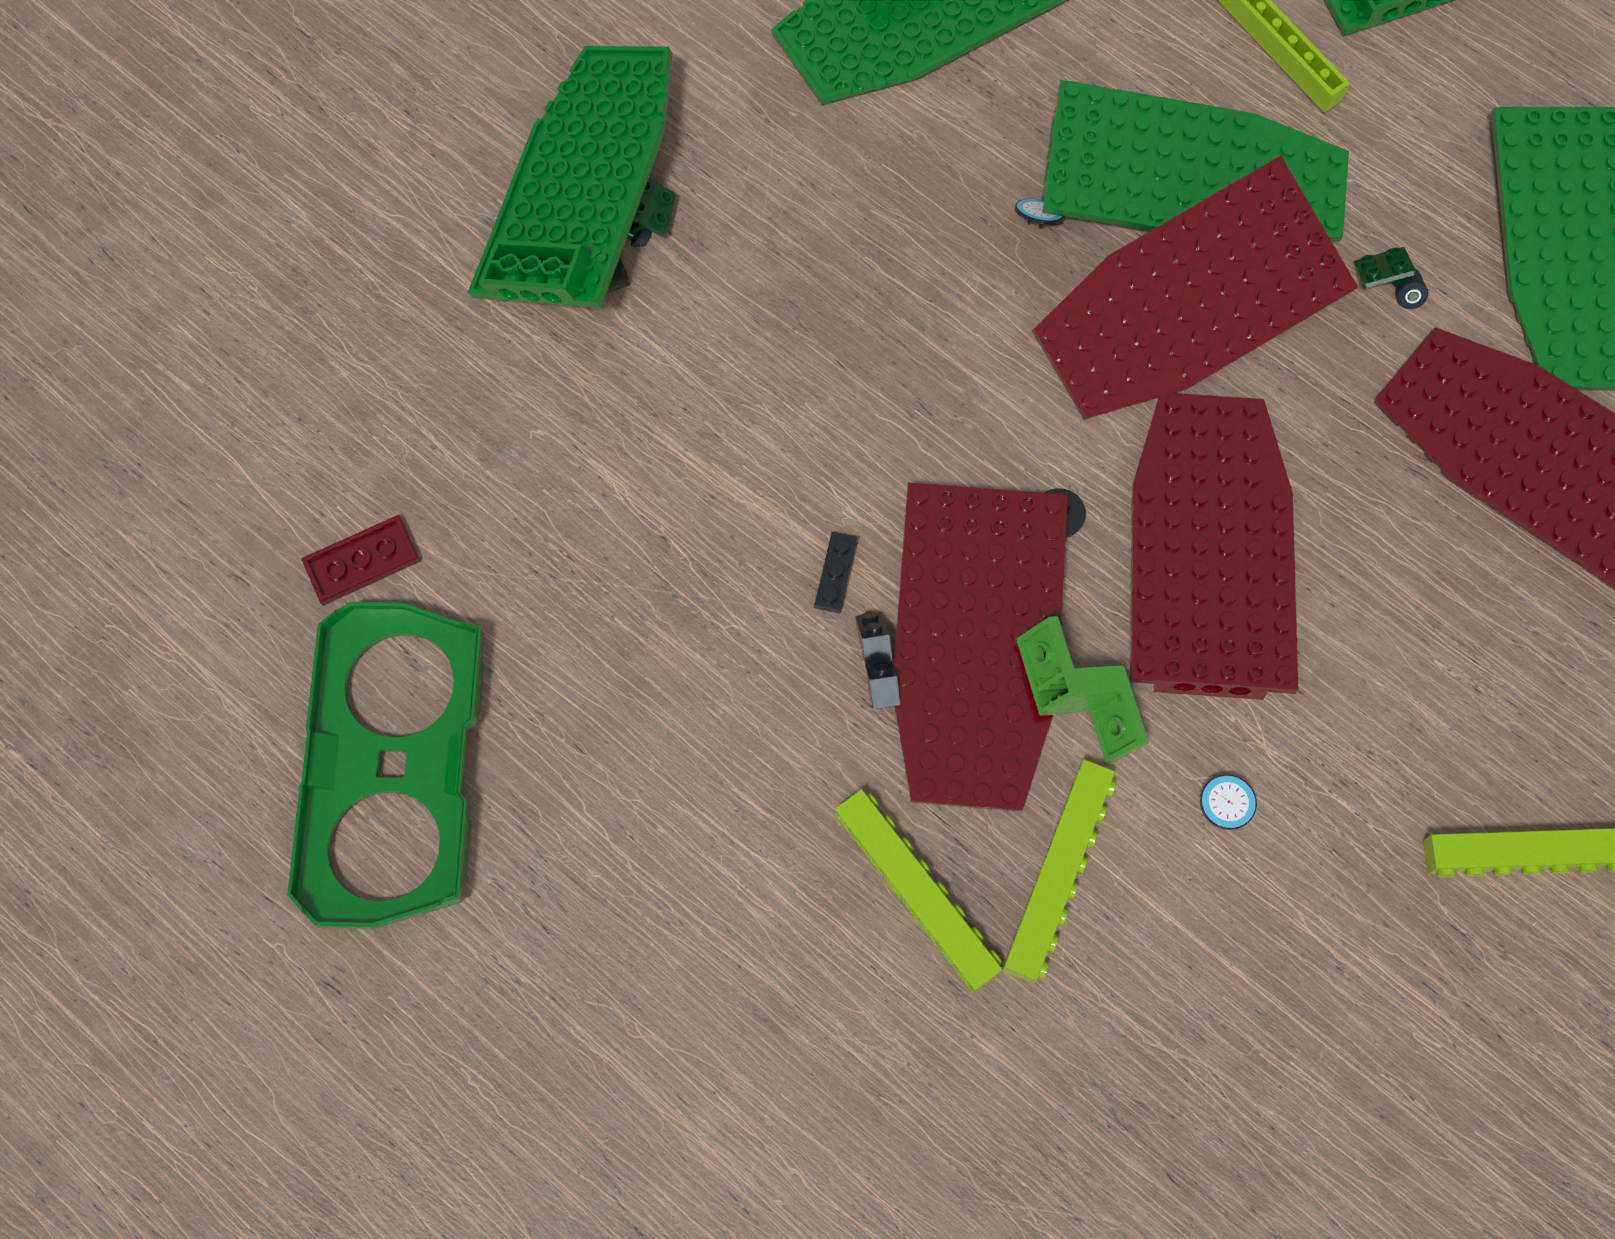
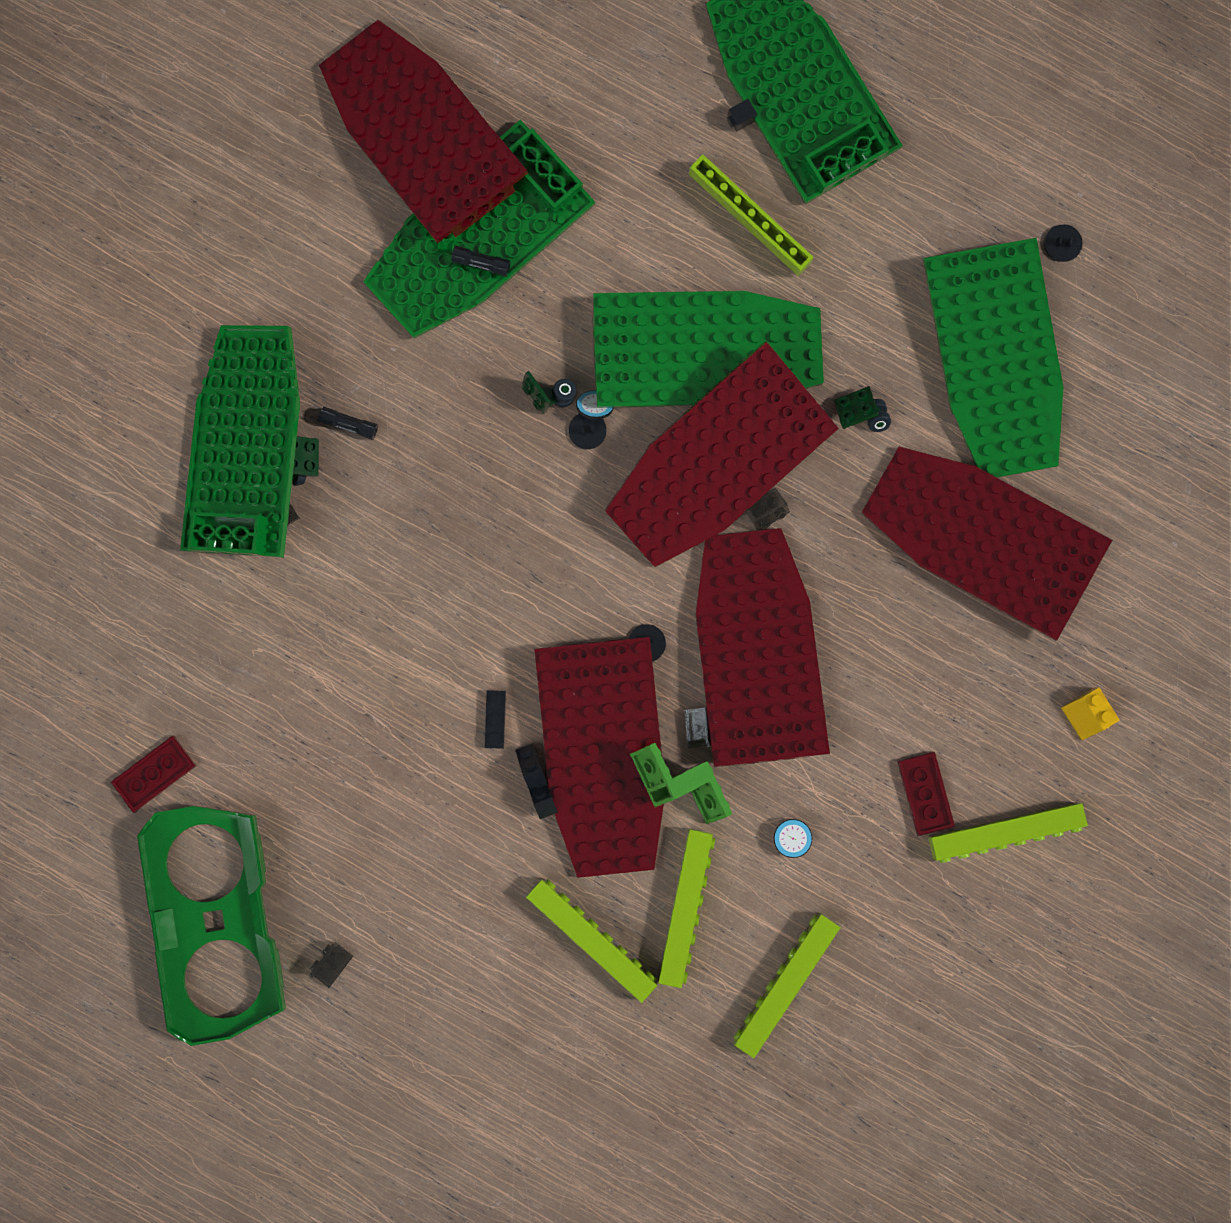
camera: 15 degrees left, 15 degrees up
(539, 855) = (331, 965): none -> clear smoke bracket
(702, 175) = (335, 419): none -> black axle
(940, 31) = (481, 261): none -> black axle
(972, 189) = (543, 398): none -> dark green plate
(1023, 244) = (587, 432): none -> black piece
(1113, 630) = (697, 728): none -> clear smoke bracket
(1190, 1010) = (786, 984): none -> lime brick
(1249, 374) = (767, 510): none -> clear smoke bracket
(1426, 780) = (925, 794): none -> dark red tile

